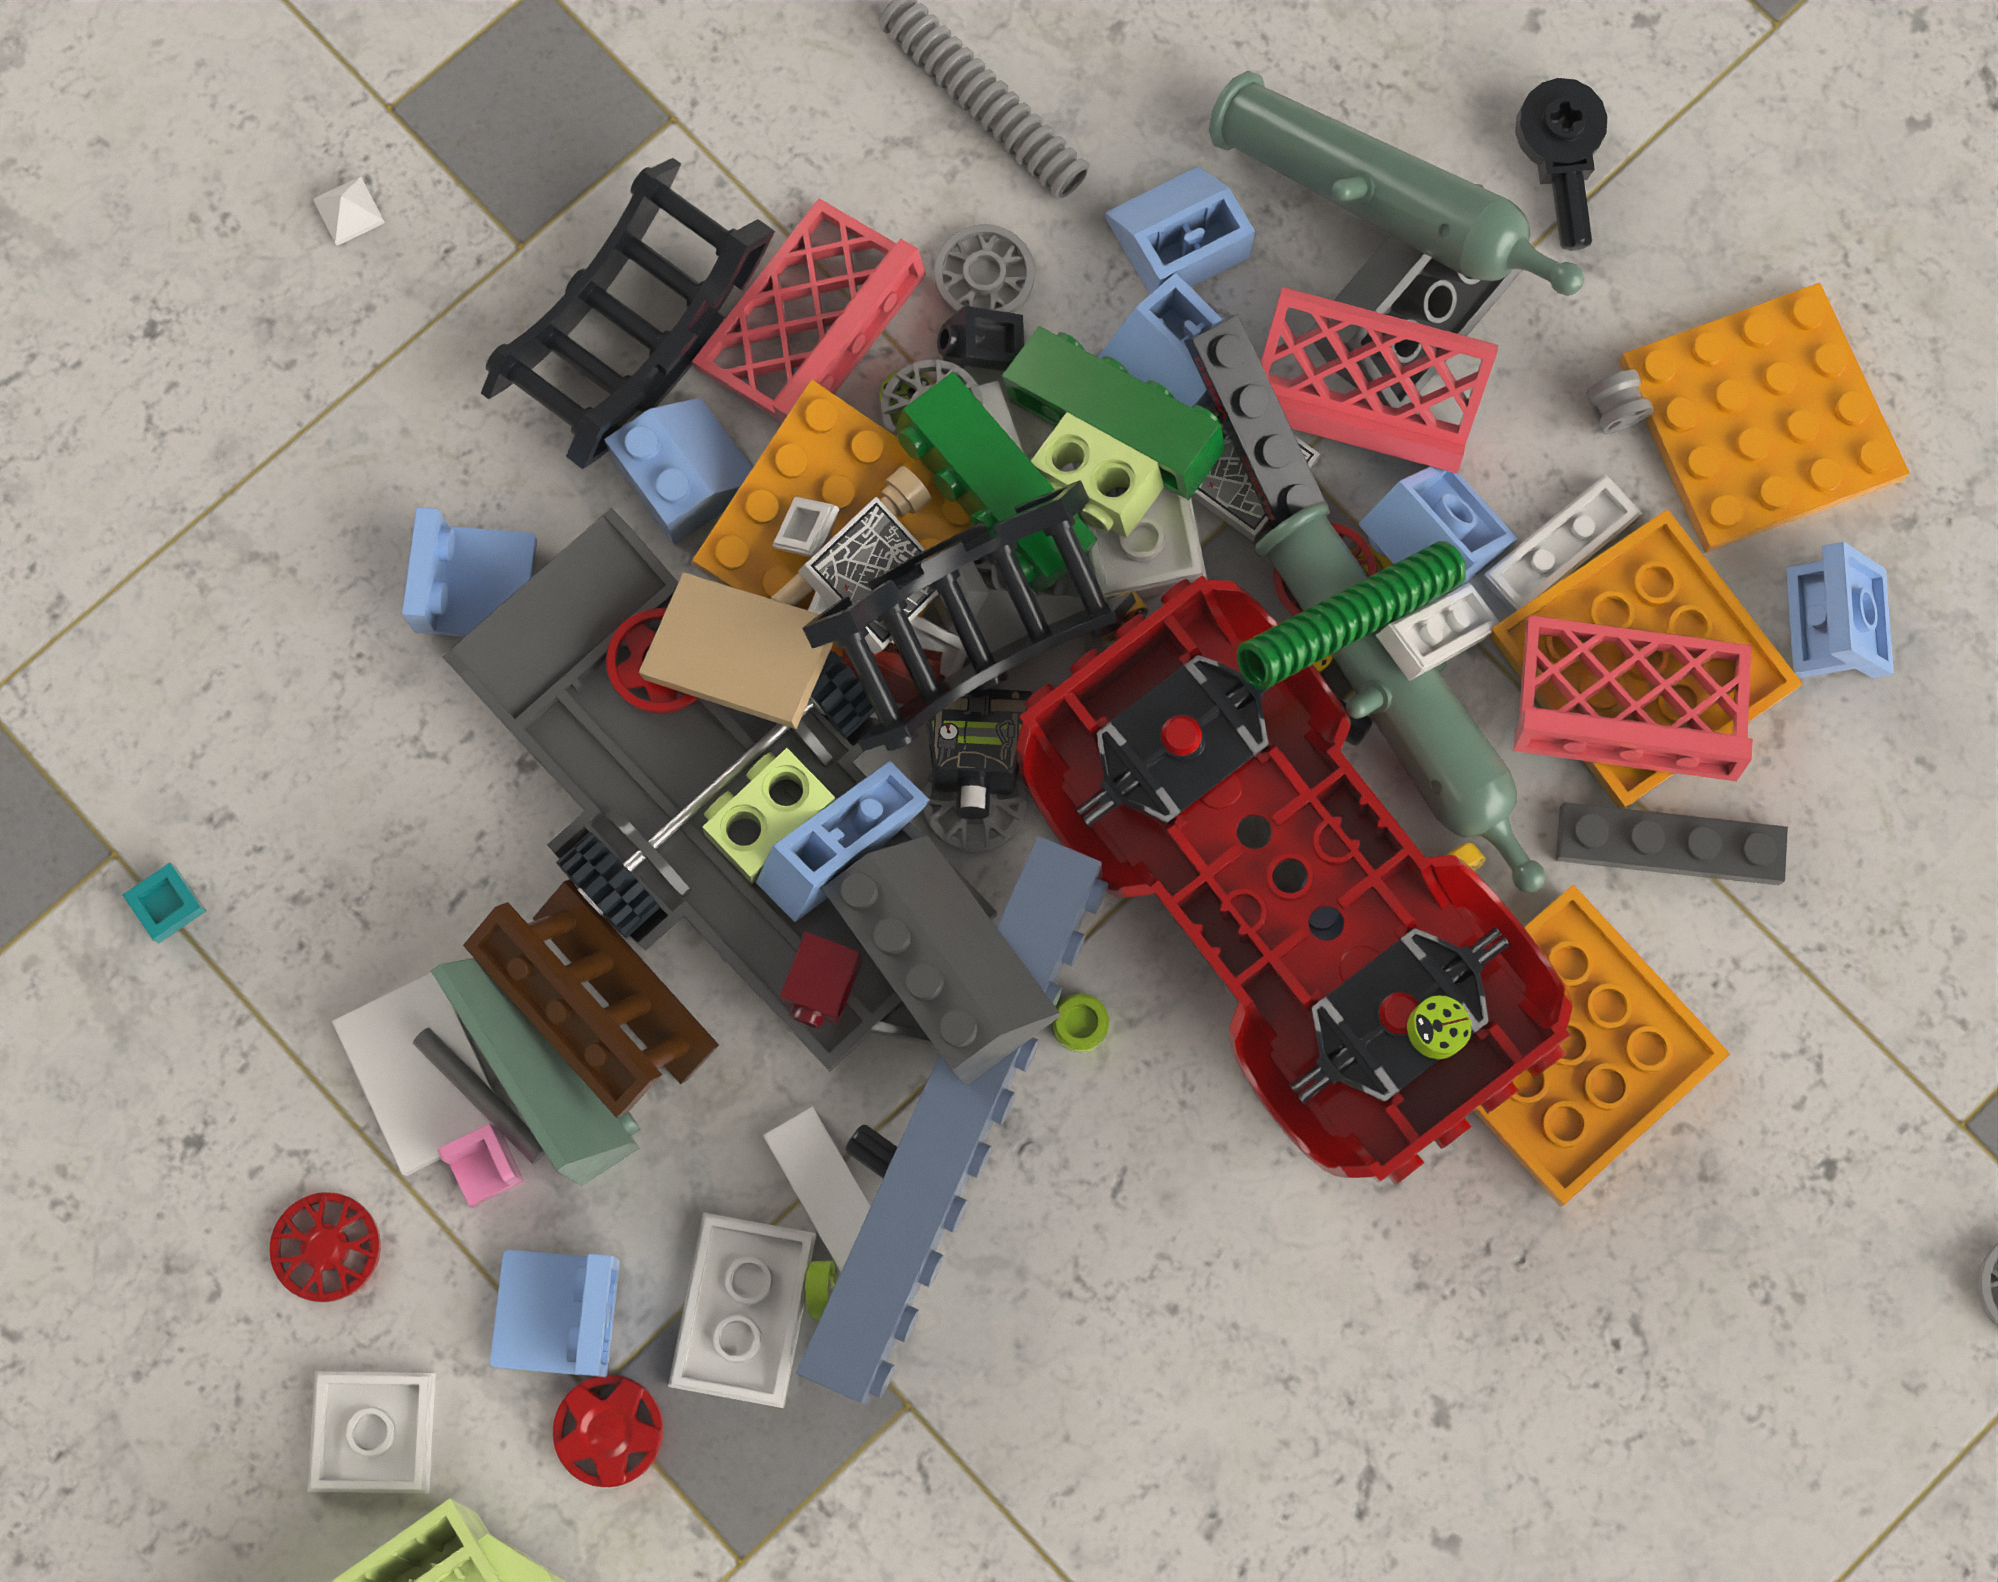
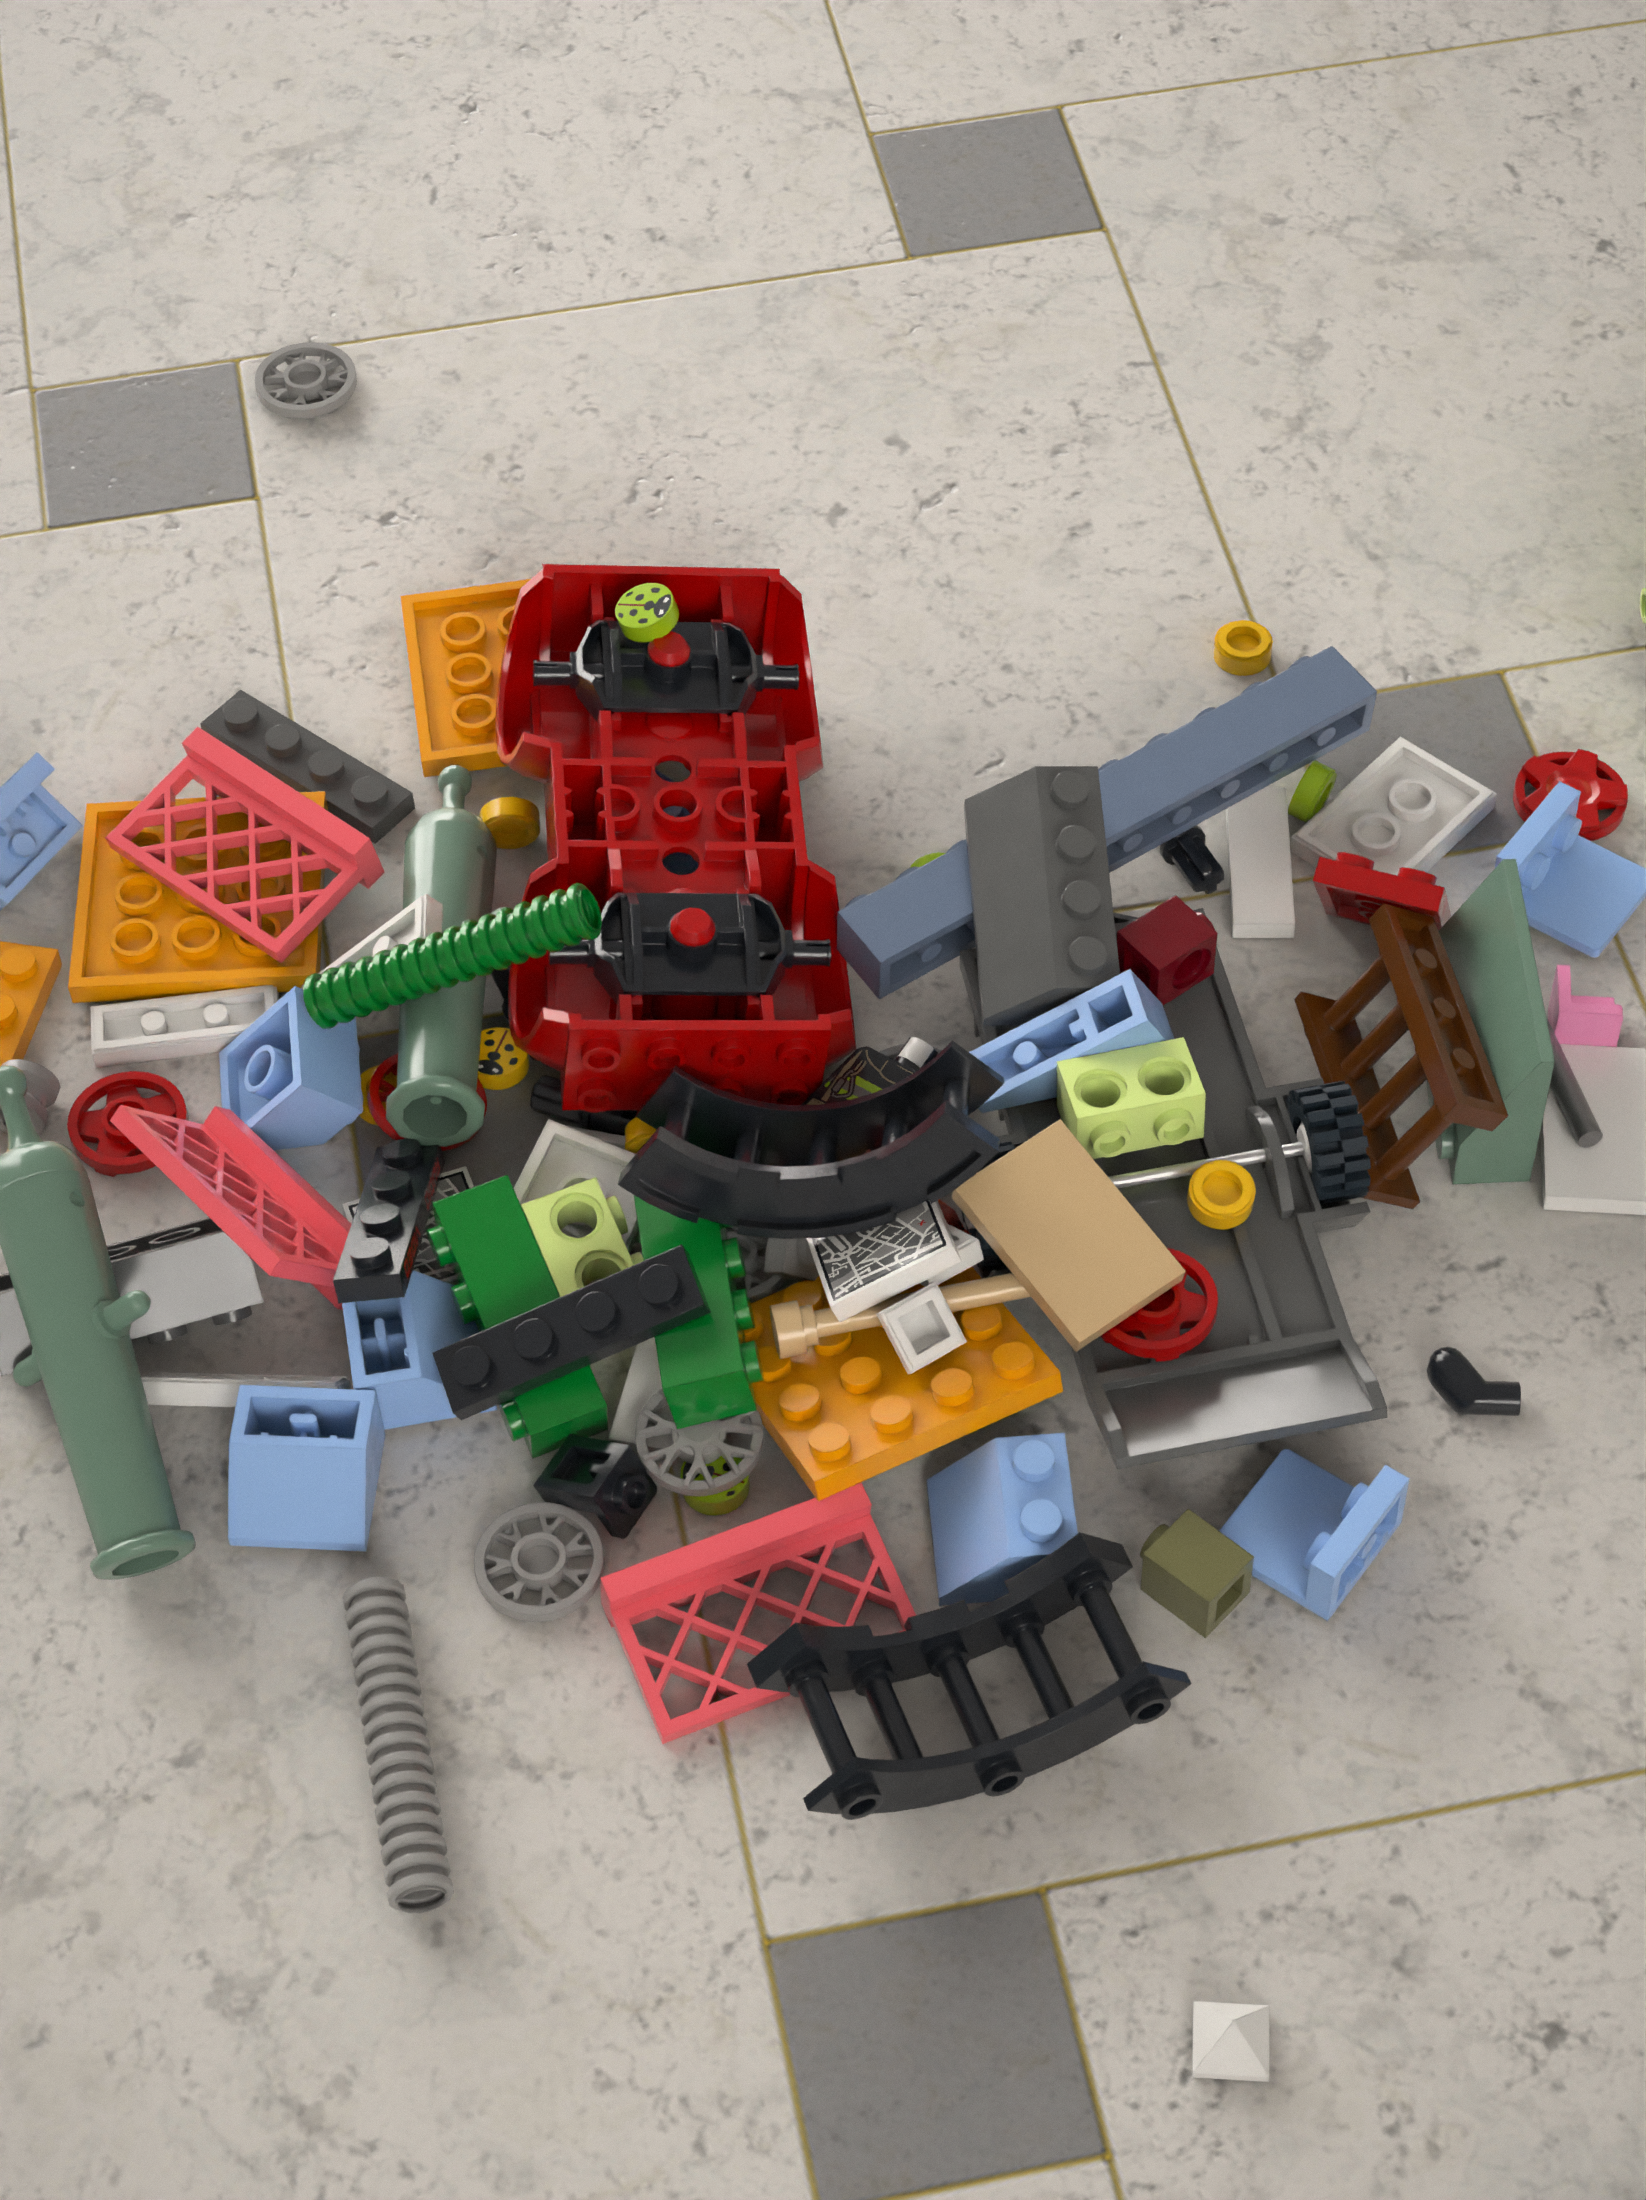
camera: 145 degrees left, 25 degrees down
(417, 764) = (1466, 1389): none -> black arm
(532, 500) = (1195, 1572): none -> olive brick
(659, 781) = (1221, 1194): none -> yellow tile
(680, 1149) = (1356, 891): none -> red plate
(978, 1447) = (1243, 648): none -> yellow tile
(1047, 383) = (571, 1332): none -> black plate
(1273, 263) = (222, 1388): none -> white tile
(1532, 439) = (114, 1150): none -> red wheel

